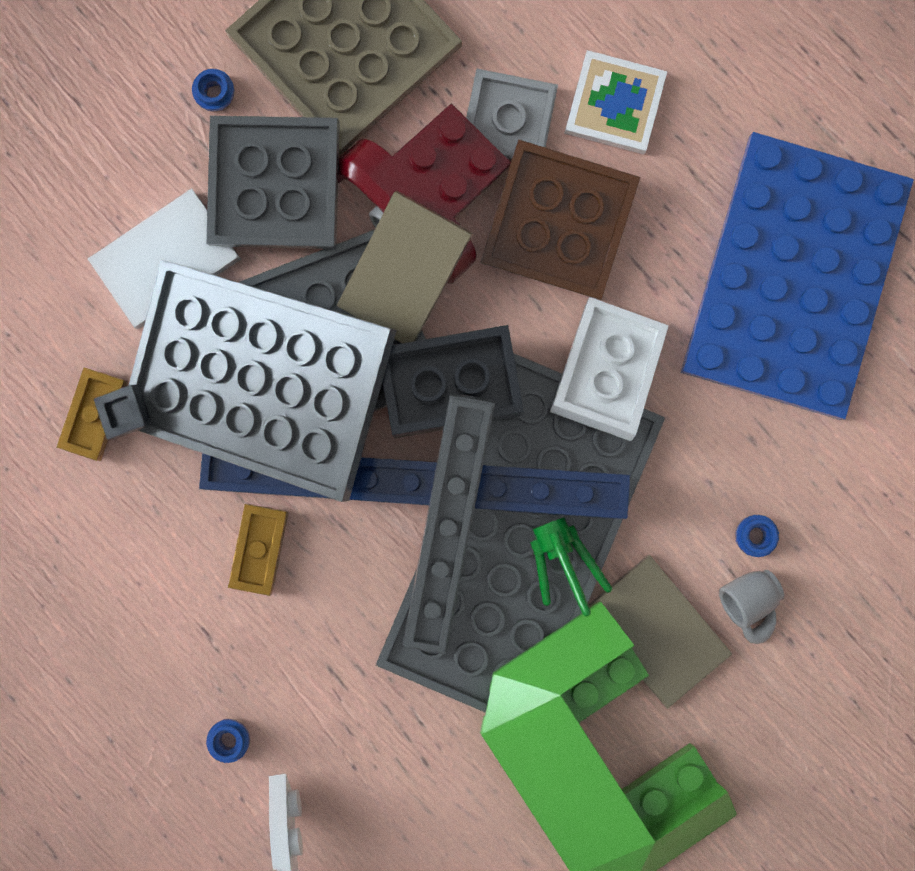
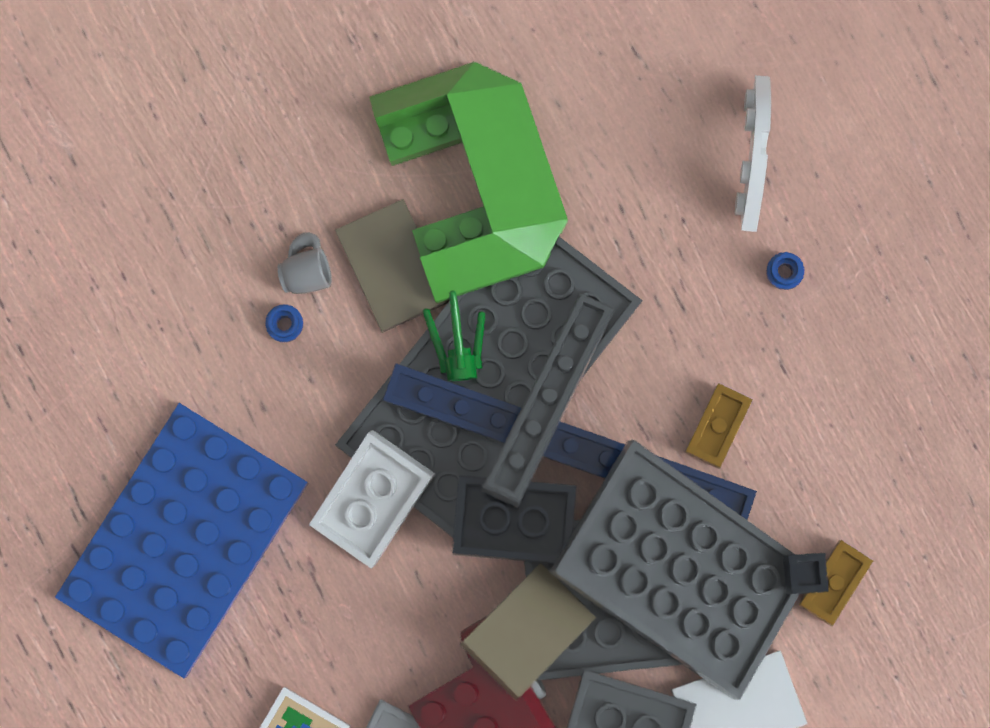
camera: 165 degrees left, 5 degrees down
(560, 219) = (378, 643): reddish brown plate -> none

